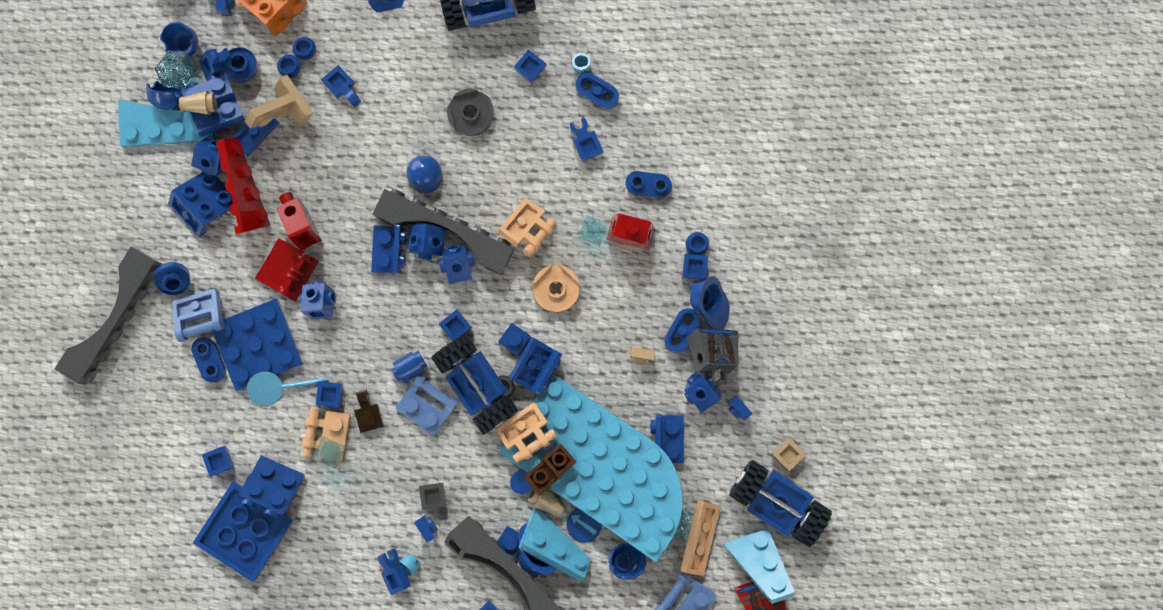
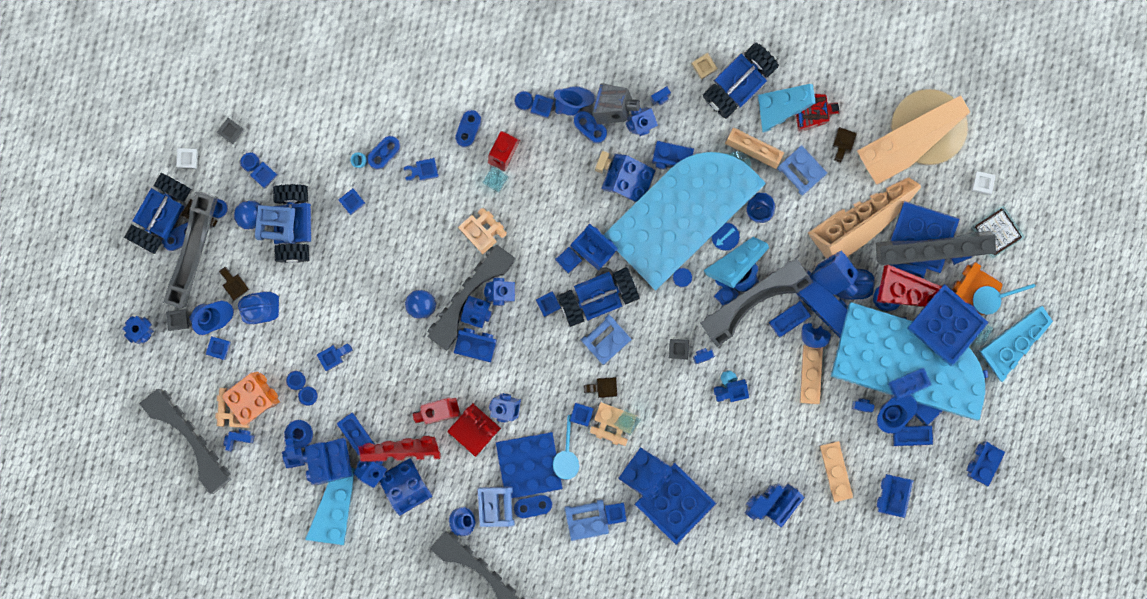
camera: 75 degrees left, 0 degrees up
(163, 97) = (310, 499): blue hair -> none
(175, 69) = (292, 486): clear light blue brick -> none
(179, 34) = (268, 479): blue hair -> none
(197, 431) = (588, 526): none -> medium blue plate
(199, 103) = (326, 468): tan cone -> none
(288, 102) = (340, 399): tan bracket -> none
(409, 366) = (573, 347): blue brick -> none
(464, 124) = (370, 250): dark grey plate -> none
(521, 427) = (640, 267): light nougat plate -> none
(542, 289) = (525, 216): light nougat plate -> none
(547, 502) = (701, 261): tan cone -> none
(550, 469) = (678, 251): reddish brown slope -> none
(629, 390) = (628, 177): none -> blue bracket

